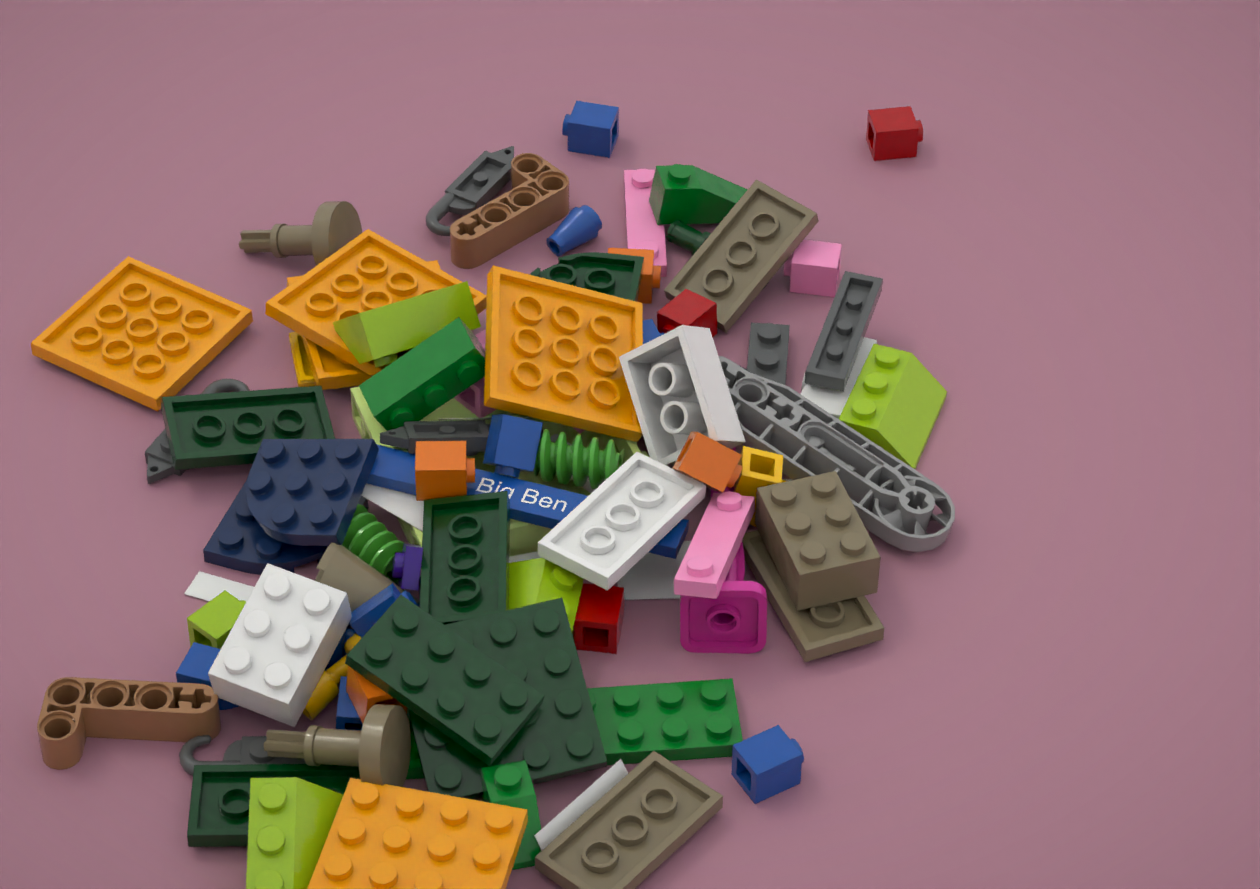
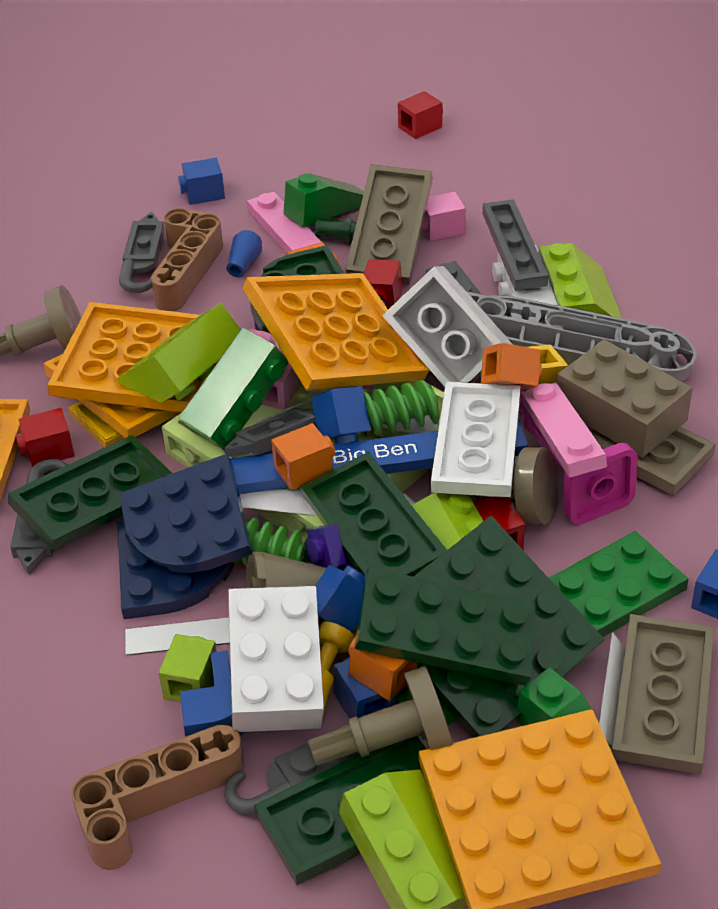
camera: 25 degrees left, 0 degrees up
(244, 355) = (45, 437): none -> red brick
(648, 593) = (533, 486): none -> dark tan piece

